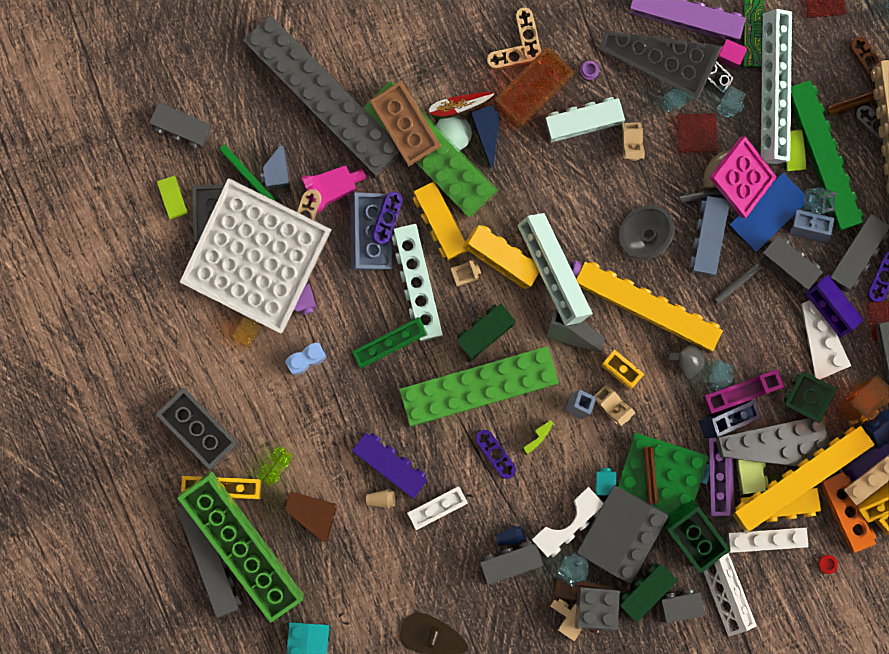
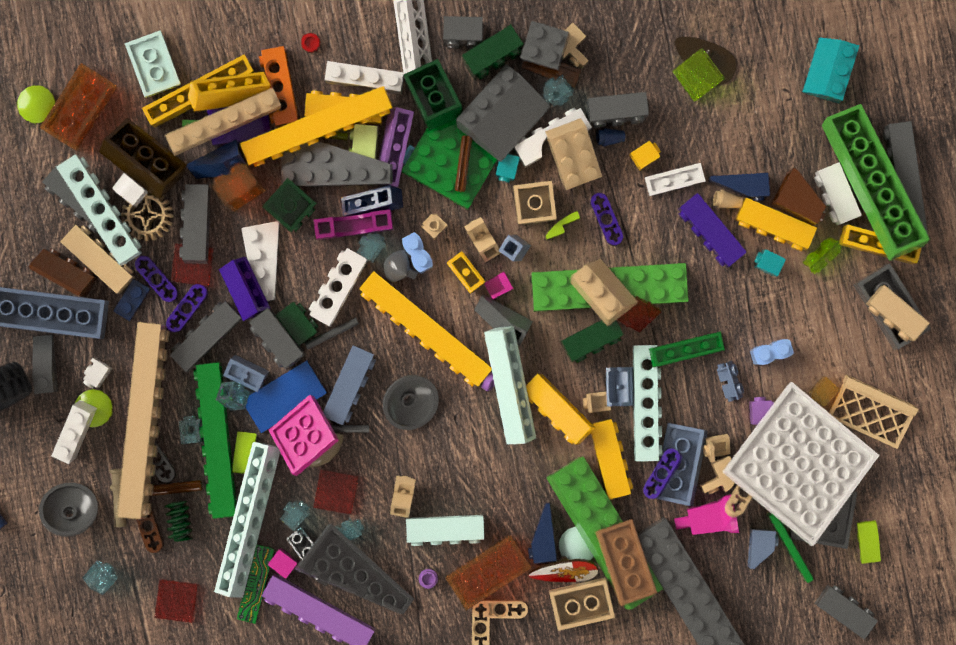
camera: 165 degrees left, 5 degrees up
(187, 338) = (881, 397): none -> tan fence
(193, 419) = (897, 314): none -> tan brick
(273, 529) = (837, 194): none -> white brick
(326, 446) = (769, 262): none -> teal brick
(328, 485) = (777, 224): none -> yellow brick
(334, 316) = (733, 388): none -> sand blue hinge
(336, 217) = (721, 480): none -> tan brick
(340, 255) = (716, 446): none -> tan bracket
(363, 518) = (746, 185): none -> dark blue slope
(437, 77) = (581, 603): none -> tan brick
(437, 617) = (698, 74): none -> clear neon green tile
(445, 366) = (639, 315): none -> clear red piece
(447, 292) = (620, 386): none -> sand blue hinge
(471, 525) = (645, 155): none -> yellow brick
(485, 378) = (603, 291): none -> tan slope
(544, 508) = (573, 153): none -> tan brick
(570, 452) = (534, 203): none -> tan brick
(586, 365) = (498, 285): none -> dark pink panel
(663, 409) = (434, 225): none -> tan window
(677, 383) = (414, 247): none -> light blue brick
(757, 302) = (357, 264): none -> white brick
(774, 285) = (297, 323): none -> dark green brick
(841, 71) = (178, 521): none -> dark green piece
(854, 153) = (187, 437): none -> clear light blue brick

